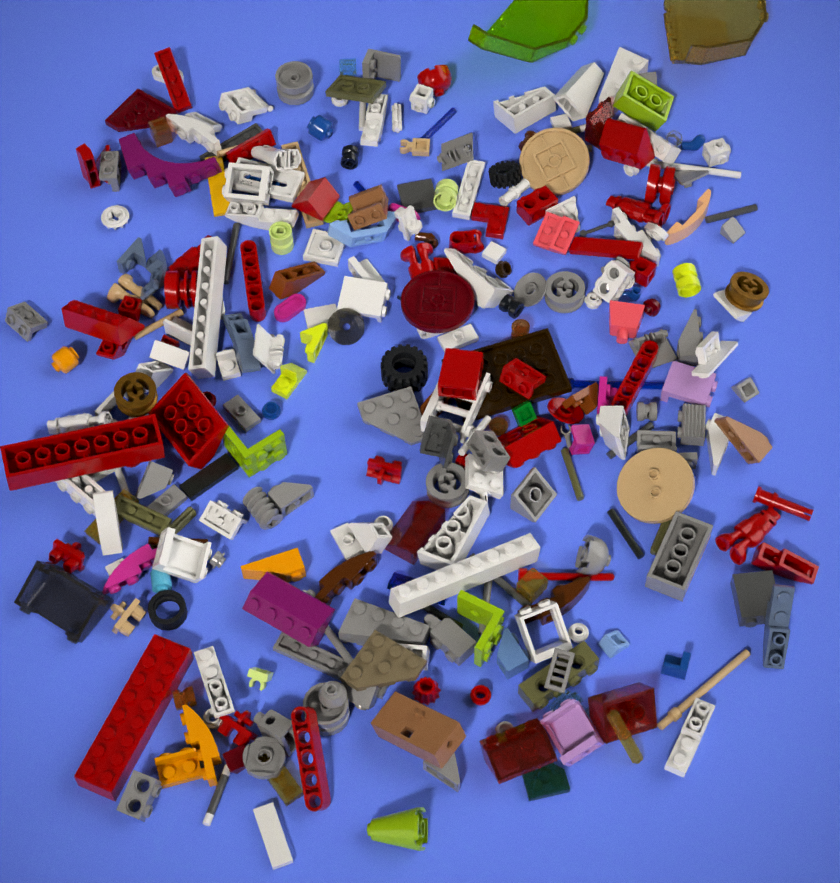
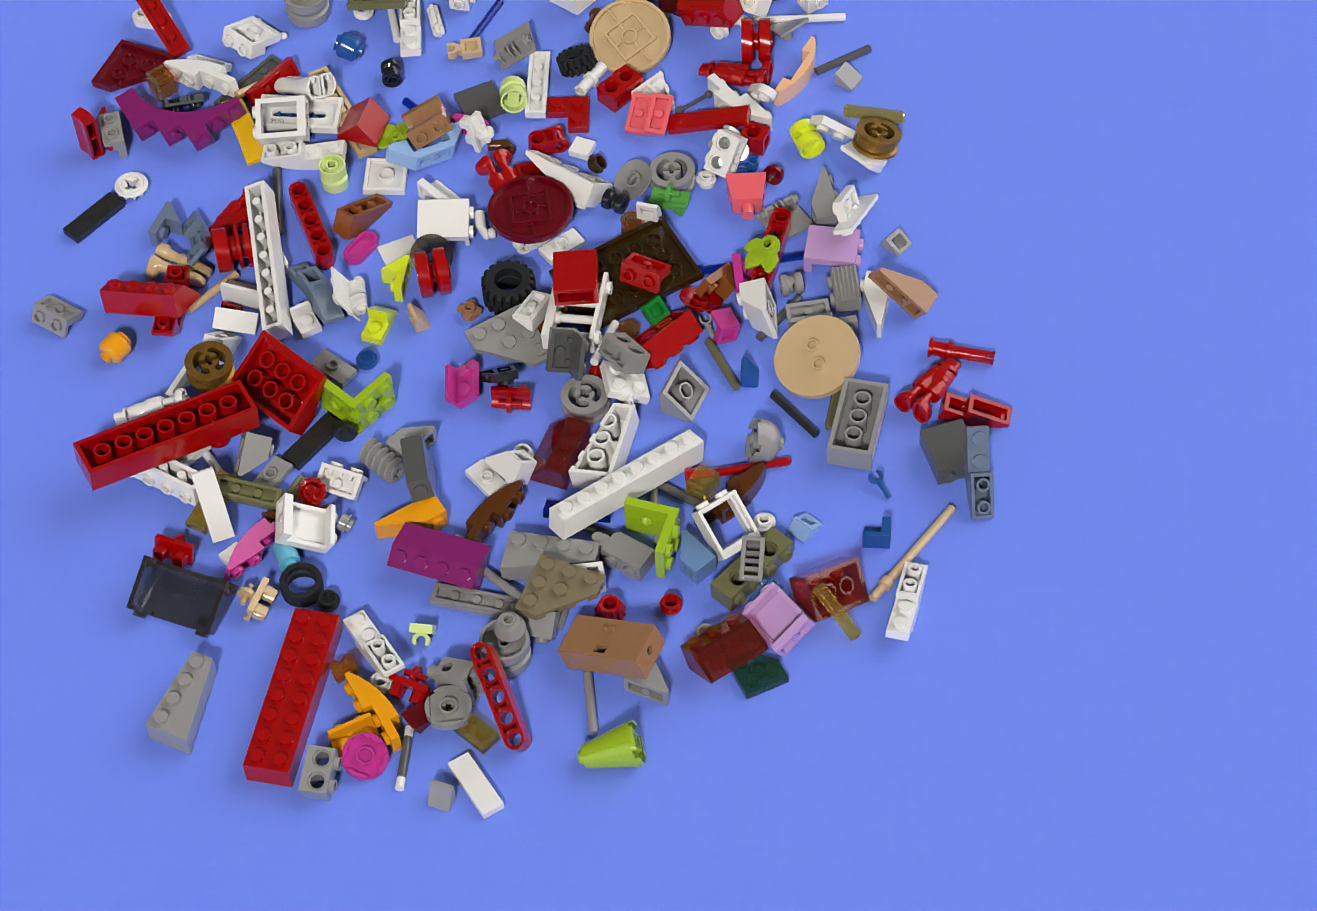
camera: 10 degrees left, 5 degrees down
(41, 703) = (183, 705): none -> light grey wedge
(77, 239) = (93, 217): none -> pearl dark grey tile
(166, 154) = (192, 101): none -> black wing
(182, 787) = (365, 756): none -> dark pink tile
(187, 629) = (328, 600): none -> pearl dark grey plate
(195, 526) = (311, 492): none -> red piece
(237, 474) = (345, 432): none -> pearl dark grey plate
(240, 840) = (441, 795): none -> light grey slope
(289, 523) = (418, 468): none -> dark grey slope
(323, 381) = (418, 318): none -> tan slope
(343, 343) = (434, 272): none -> red wheel
(345, 449) = (462, 384): none -> dark pink bracket
(367, 386) = (469, 310): none -> medium nougat plate
(377, 448) = (501, 374): none -> black wing
(388, 792) = (590, 703): none -> light grey bar
(393, 306) = (480, 221): none -> white arm
(419, 394) = (532, 310): none -> white slope
(536, 324) = (648, 212): none -> white slope
(557, 313) = (670, 199): none -> bright green hips
(593, 488) = (749, 373): none -> blue slope
(624, 382) = (762, 255): none -> lime plate
(688, 616) = (880, 483): none -> blue hand
(705, 272) = (827, 125): none -> white plate
(745, 266) = (869, 112): none -> clear yellow axle

